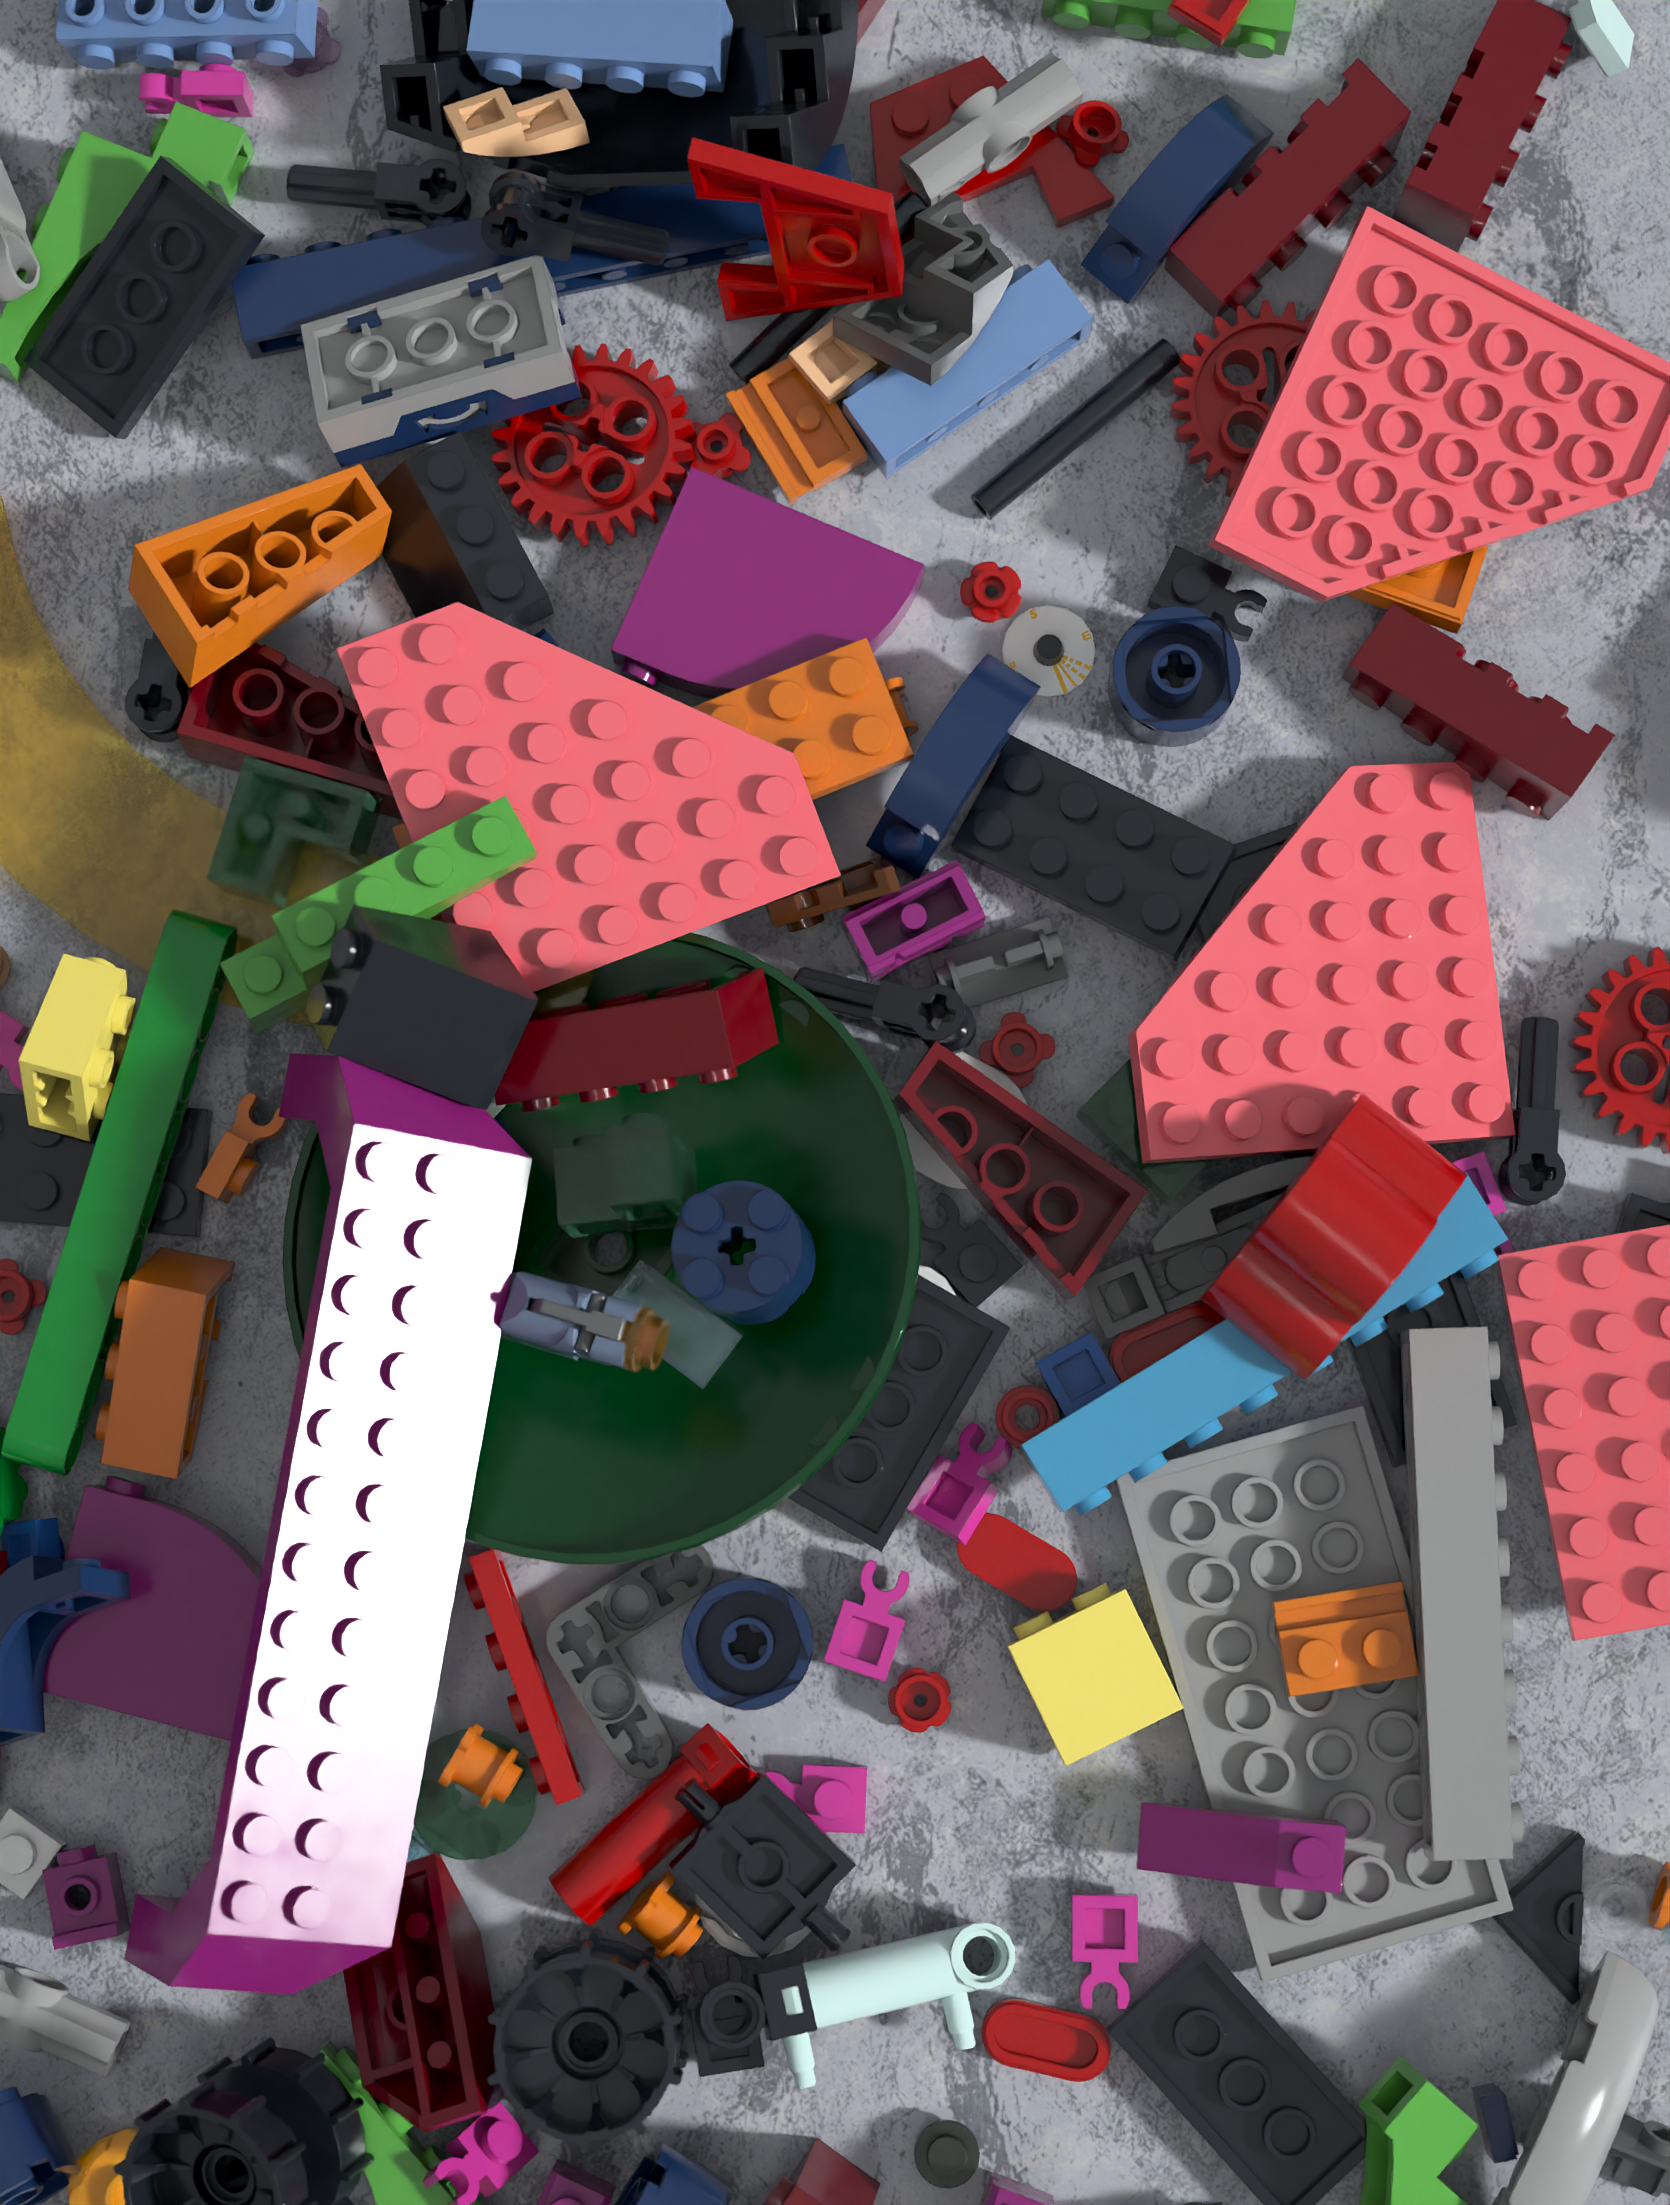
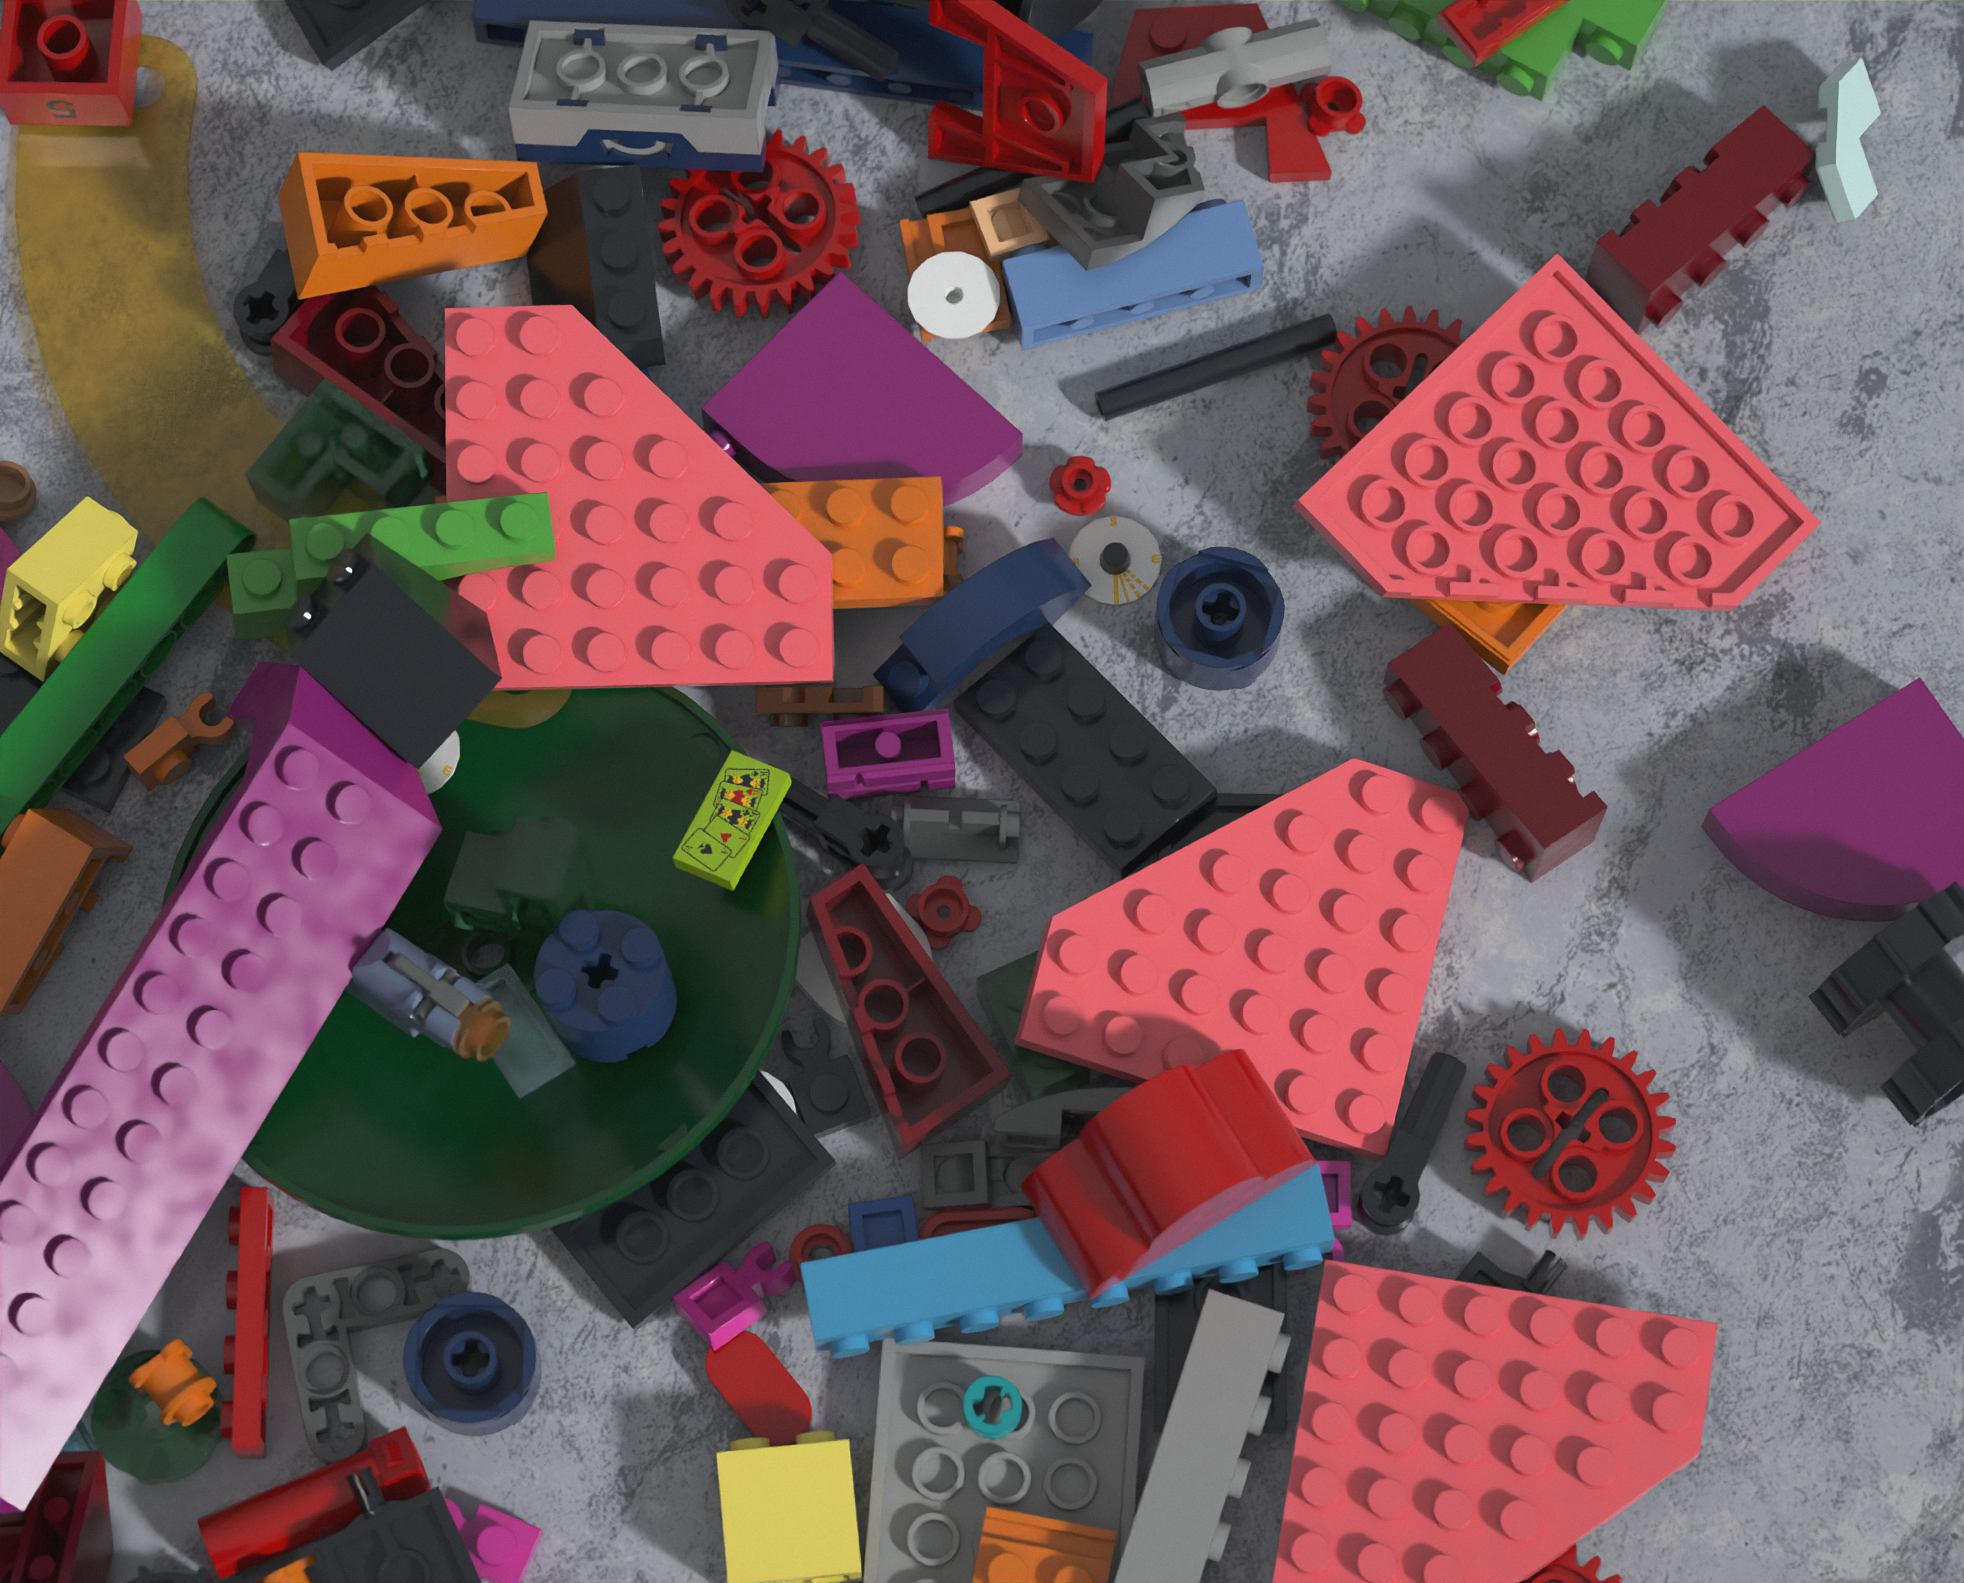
camera: 15 degrees right, 10 degrees down
(640, 1042) = (580, 759): dark red wedge -> none
(730, 458) = (885, 279): red plate -> none
(799, 1047) = (732, 820): none -> lime tile
(807, 451) = (953, 295): none -> white piece
(865, 1632) = (591, 1401): dark pink plate -> none
(915, 1717) = (613, 1467): red plate -> none
(1172, 192) = (1402, 169): dark blue arch -> none
(1202, 586) = (1284, 553): black plate -> none
(1261, 1513) = (1009, 1418): none -> teal bush
(1291, 194) = (1494, 222): dark red wedge -> none

